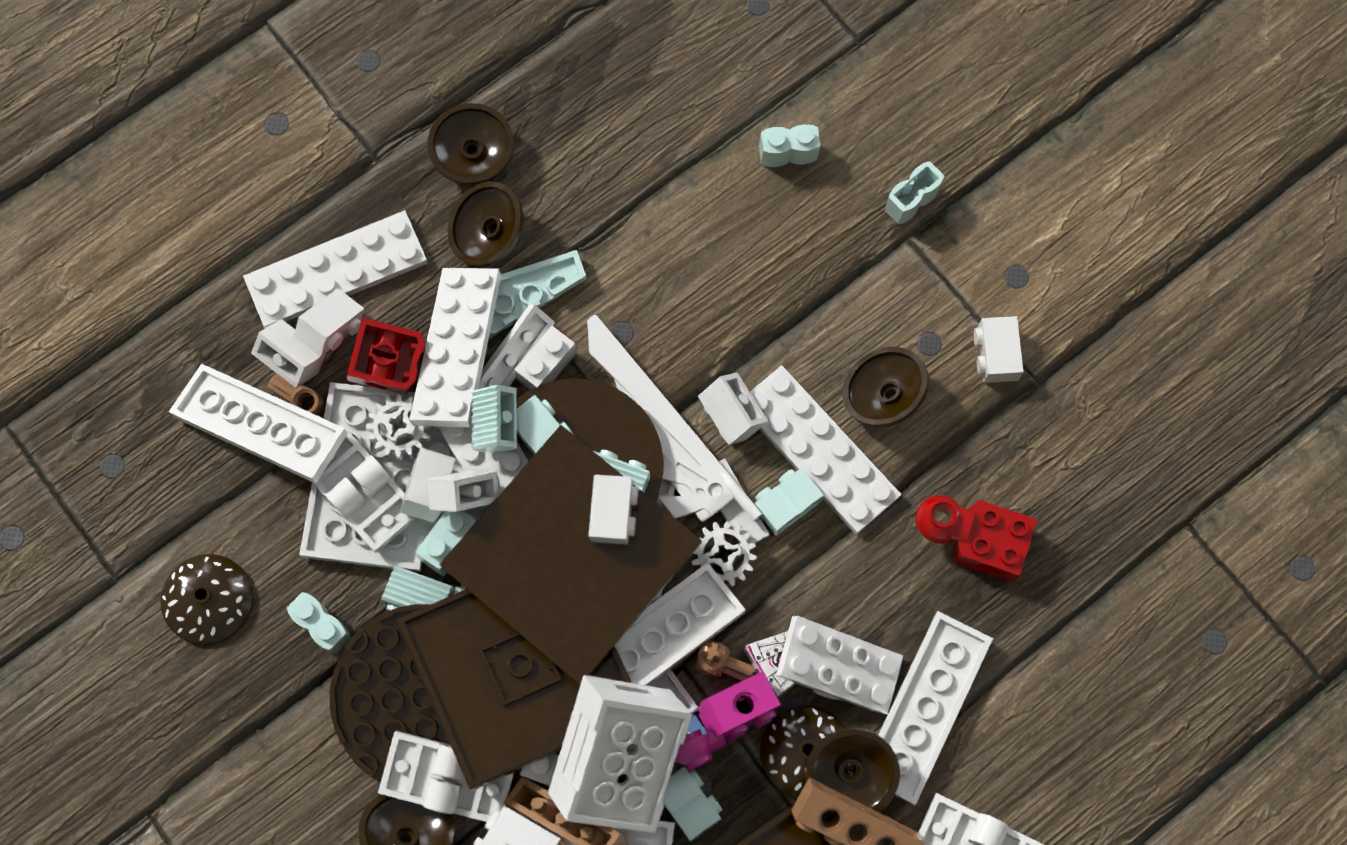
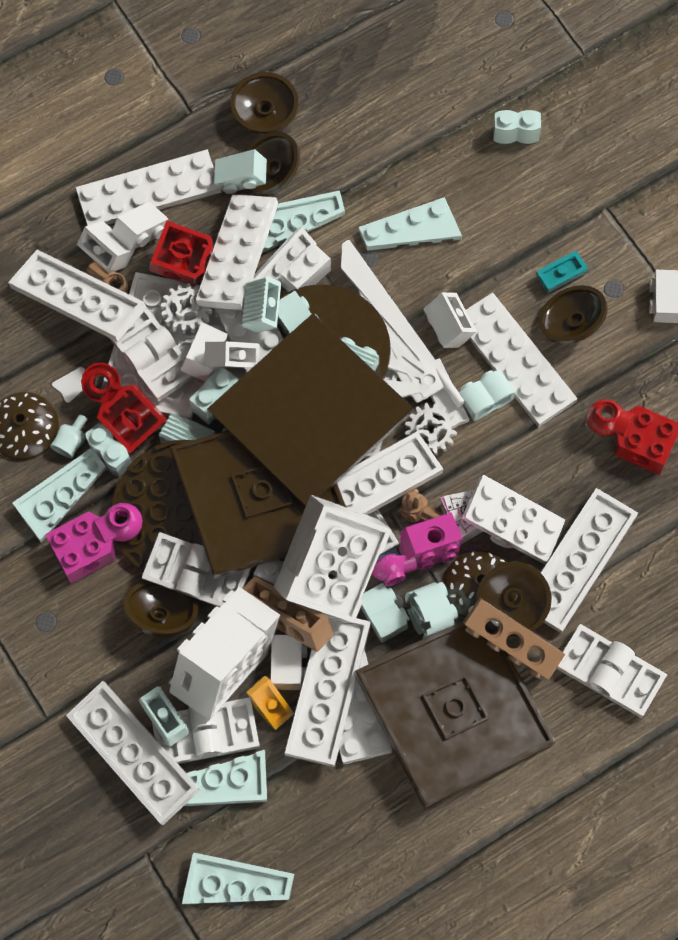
camera: 10 degrees right, 5 degrees down
(257, 691) = (54, 497): none -> light aqua wing
(265, 536) = (70, 384): none -> white sticker
(268, 610) = (69, 438): none -> light aqua piece
(307, 748) = (88, 540): none -> dark pink brick
(335, 569) = (123, 408): none -> red brick
(449, 238) = (240, 171): none -> light aqua brick
(612, 509) = (346, 376): white brick -> none
(677, 285) = (420, 224): none -> light aqua wing
(749, 797) = (430, 609): none -> light aqua brick
(864, 329) = (561, 271): none -> teal plate
(913, 193) = (613, 170): light aqua brick -> none

